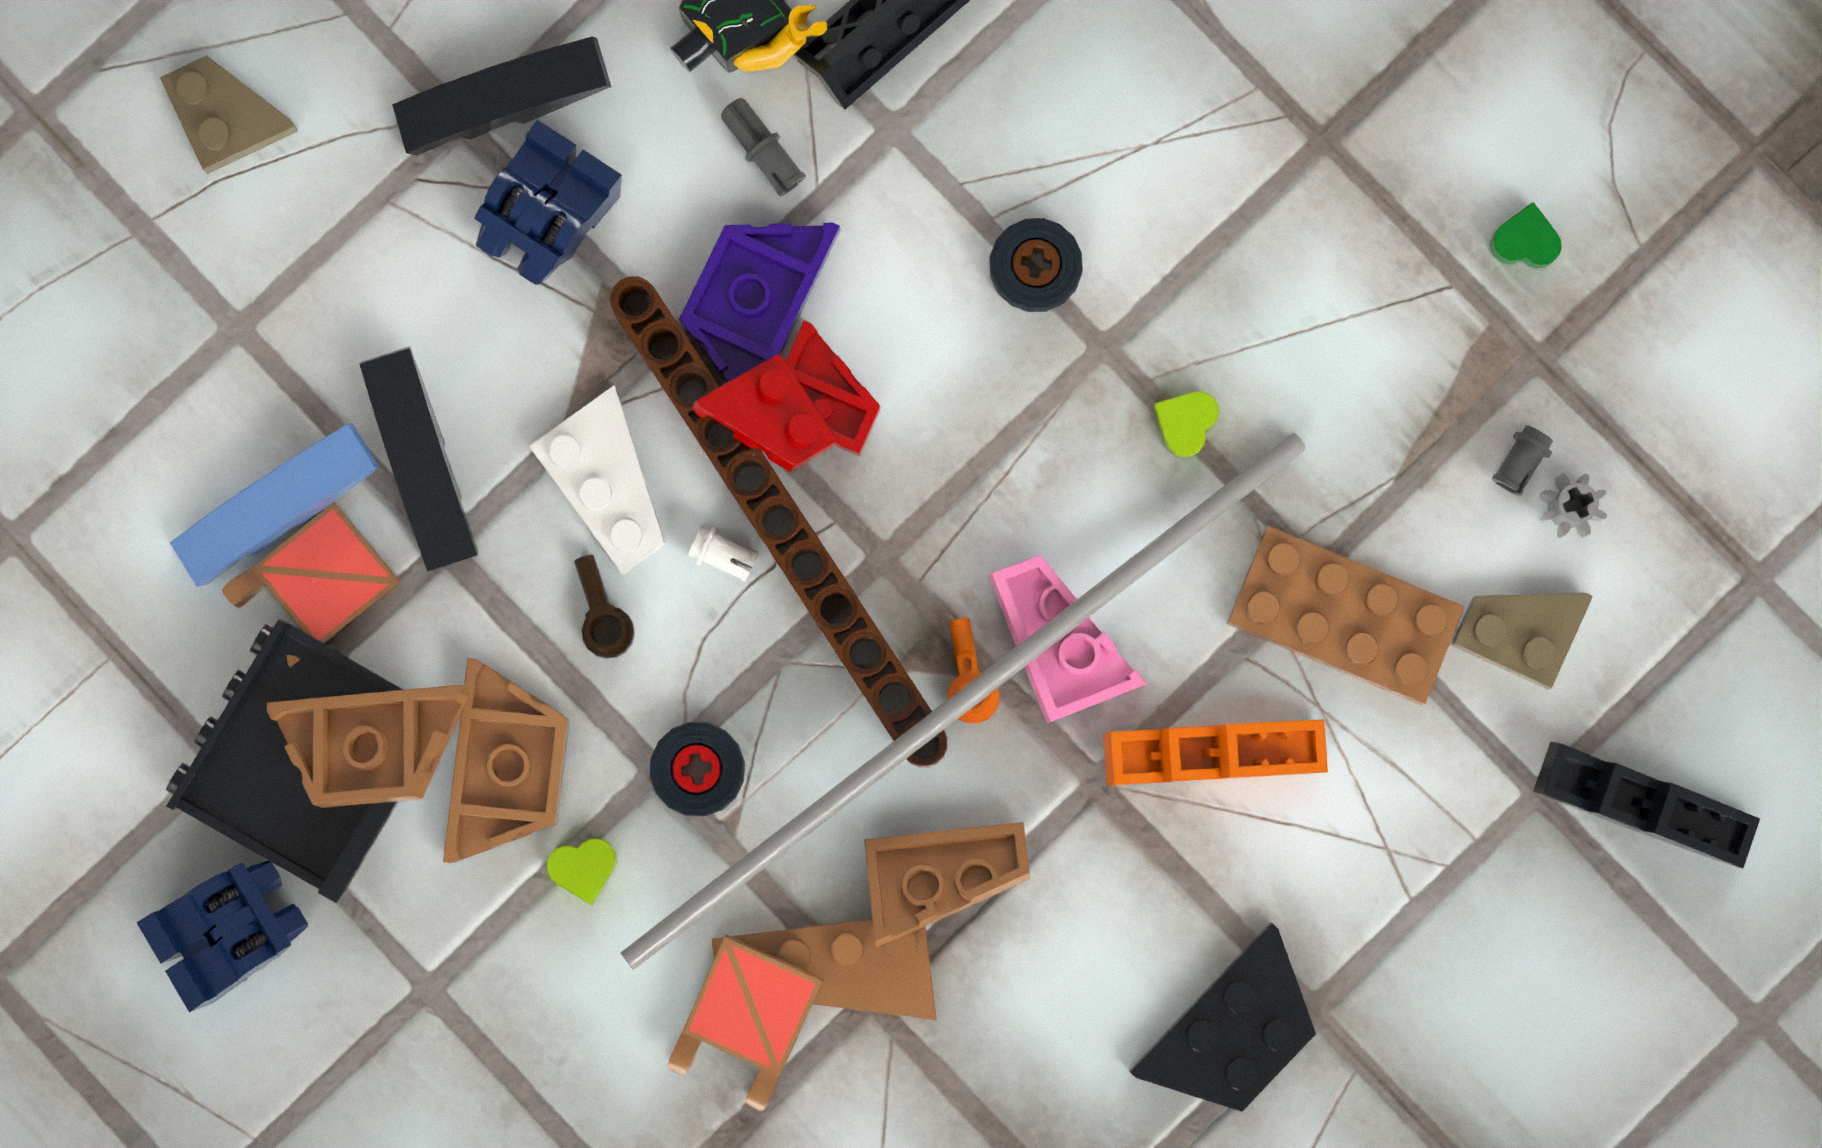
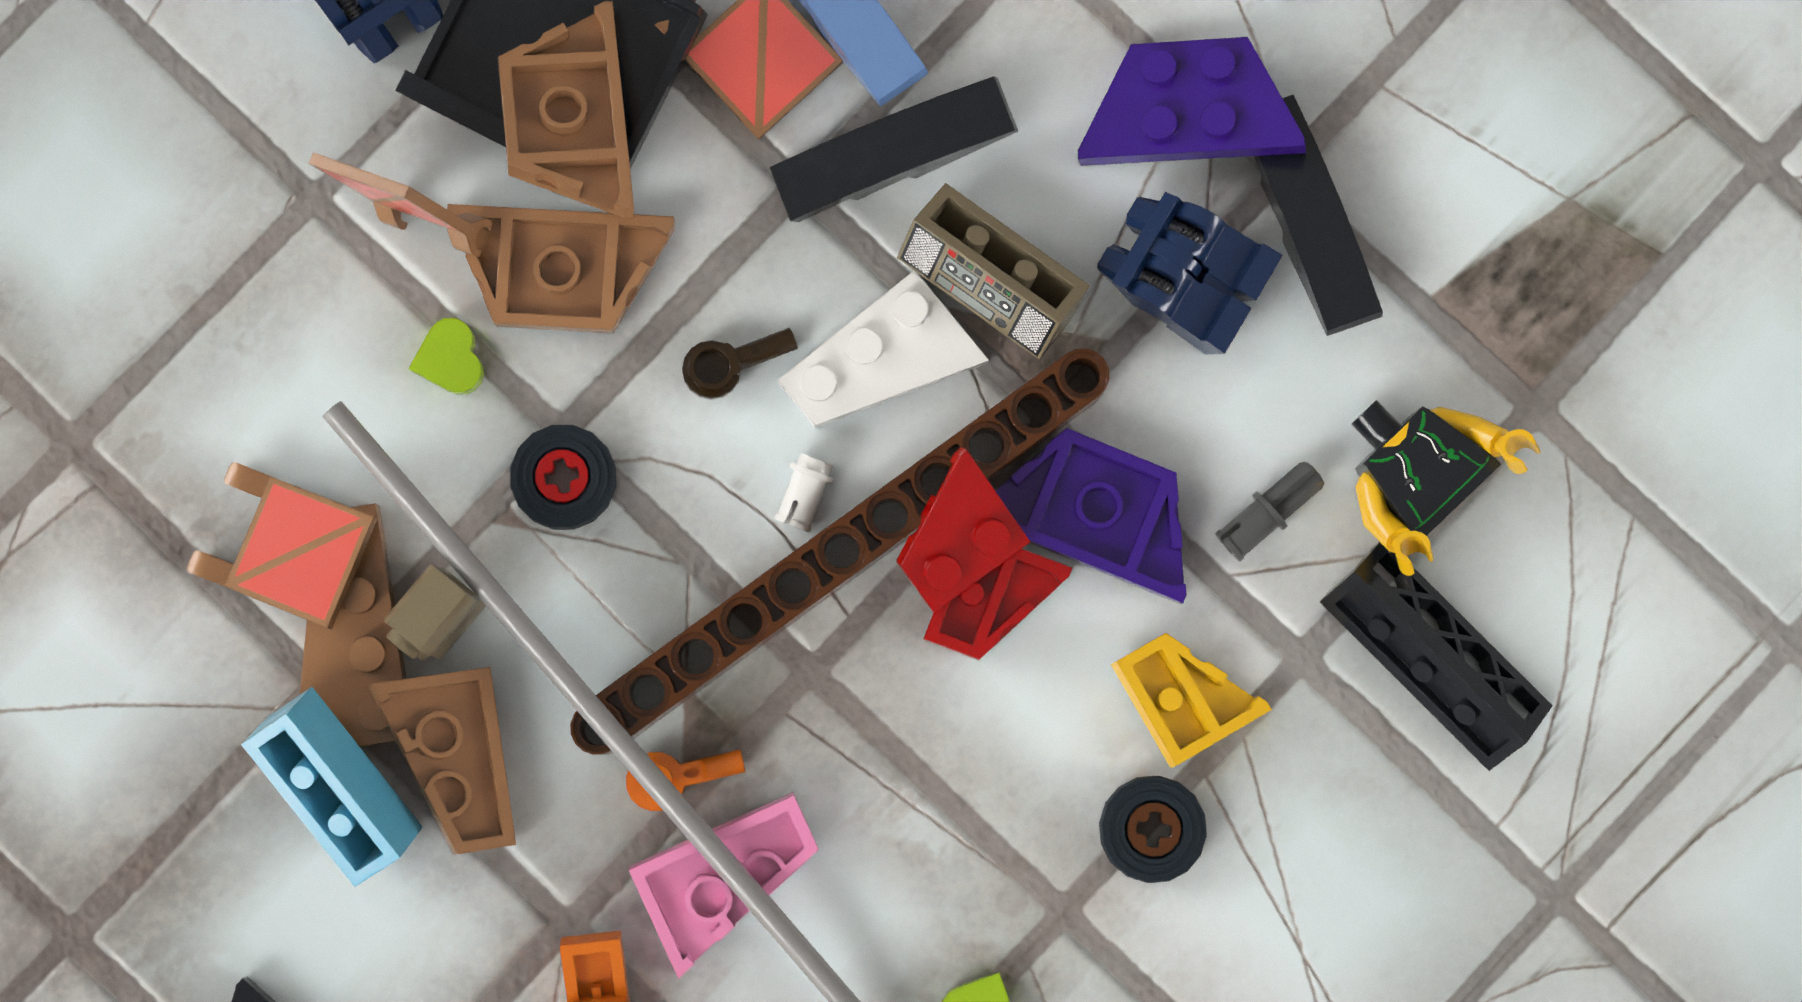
camera: 80 degrees right, 0 degrees up
(396, 193) = (1190, 105): none -> dark purple wing
(433, 910) = (393, 198): none -> medium nougat flag
(535, 374) = (992, 271): none -> dark tan brick
(815, 884) = (432, 614): none -> dark tan brick
(924, 231) = (1184, 699): none -> yellow wing
(964, 979) = (333, 786): none -> medium azure brick

